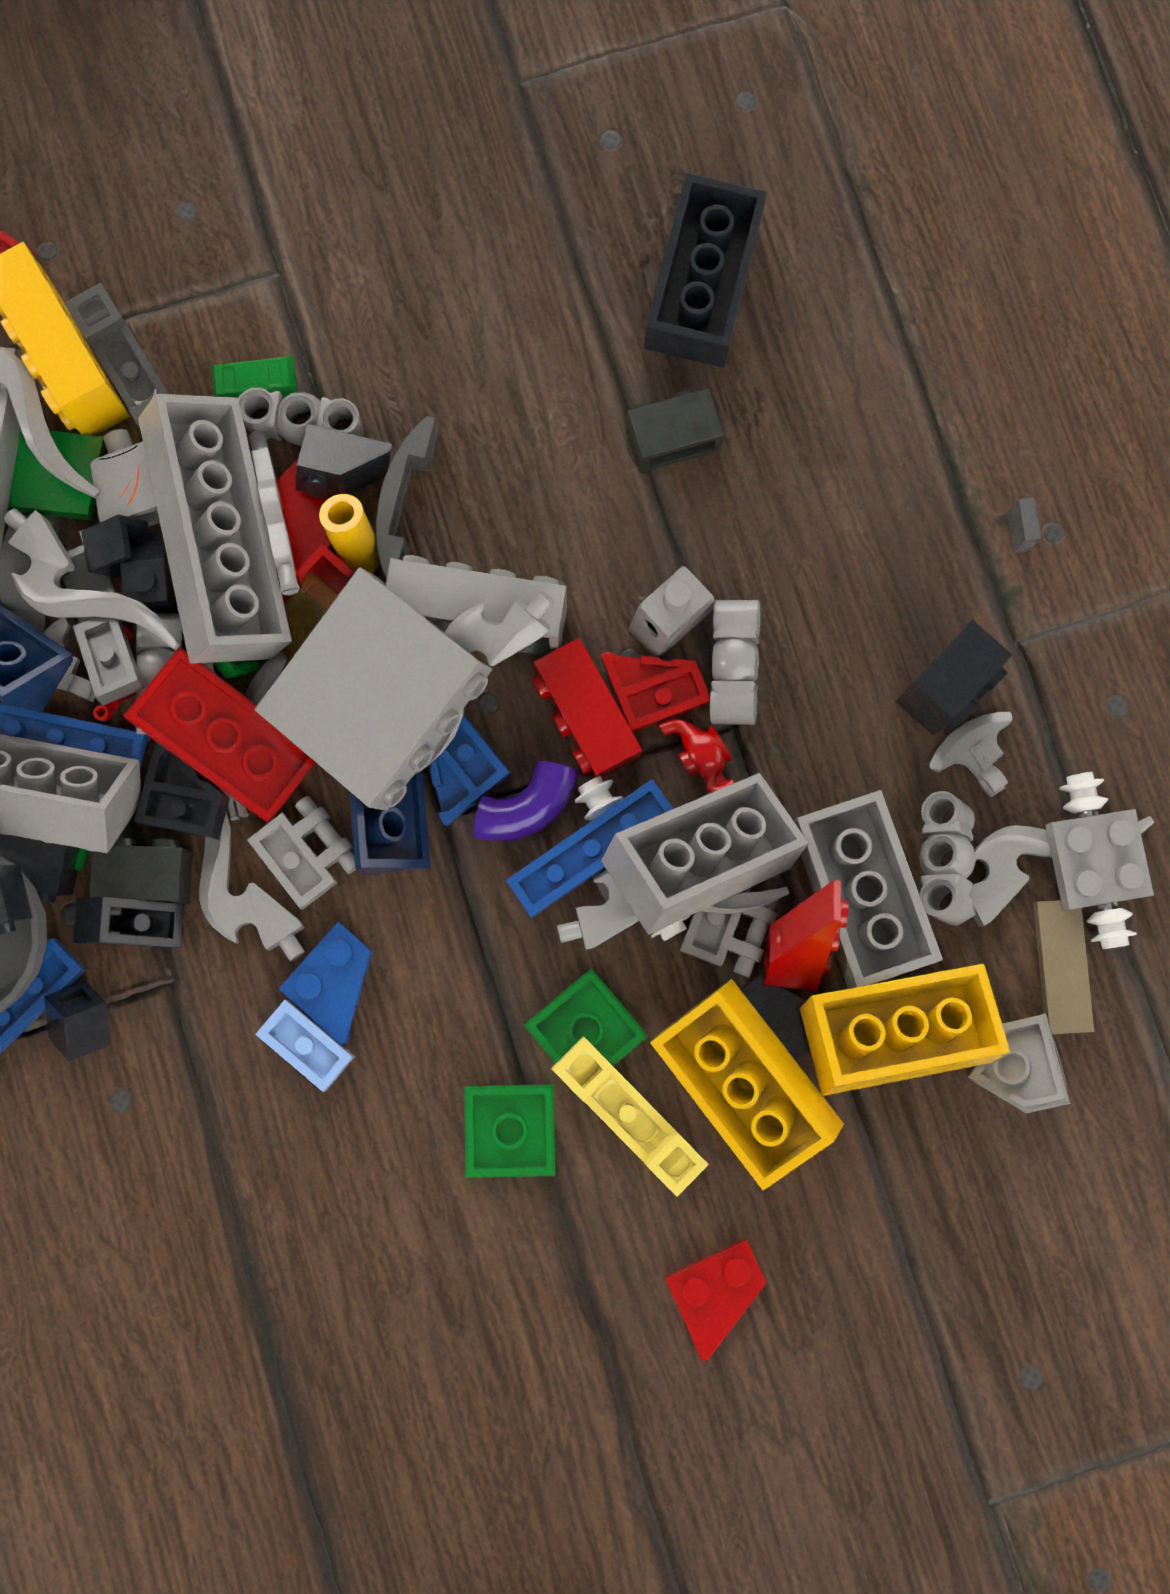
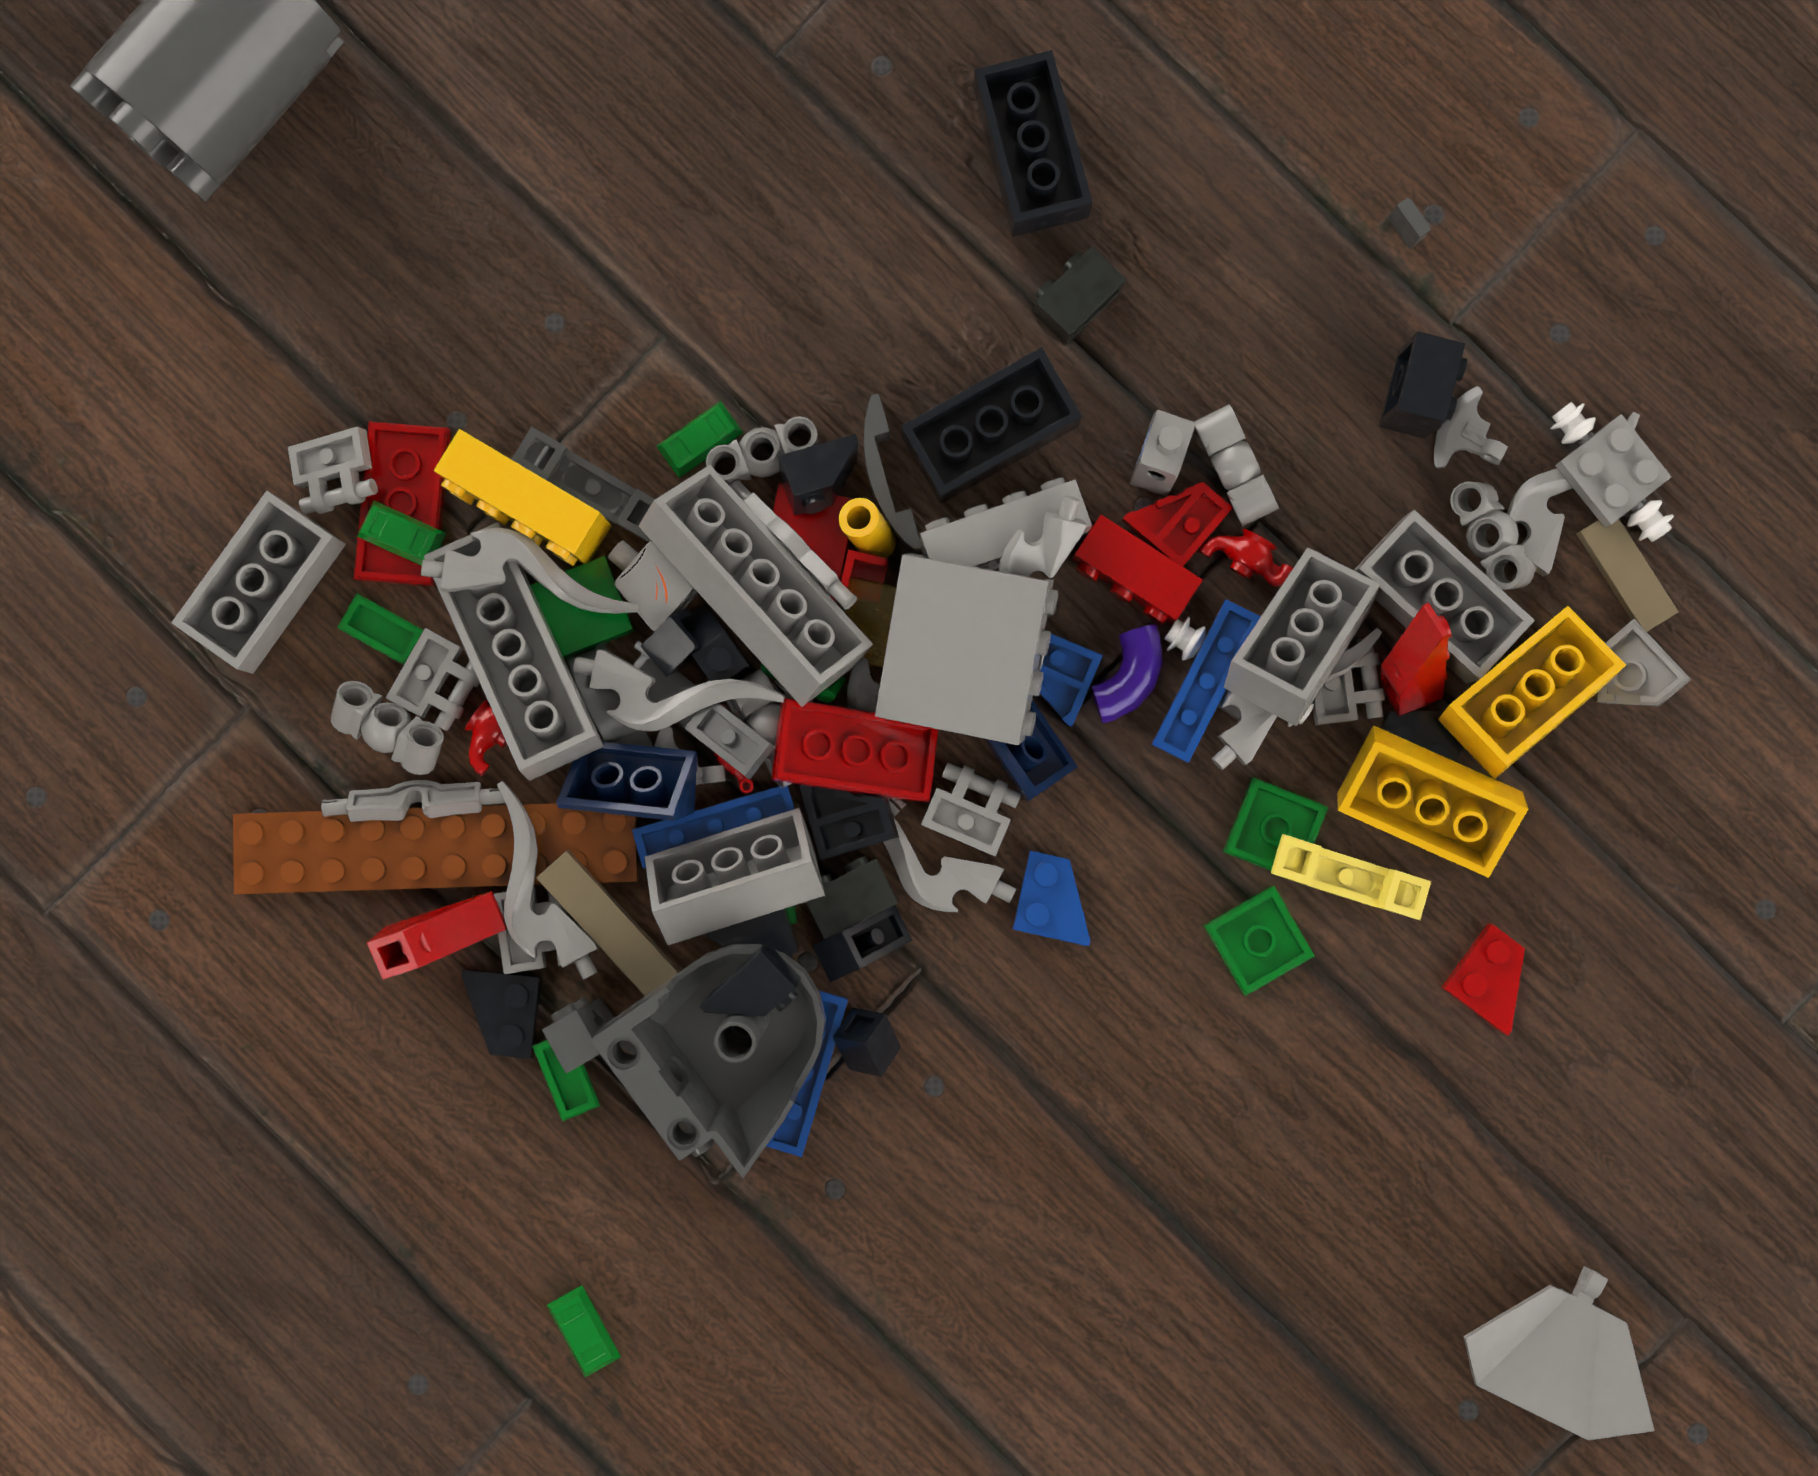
camera: 25 degrees left, 5 degrees up
(305, 1045) = (1060, 962): light blue plate -> none
(522, 503) = (991, 425): none -> black brick

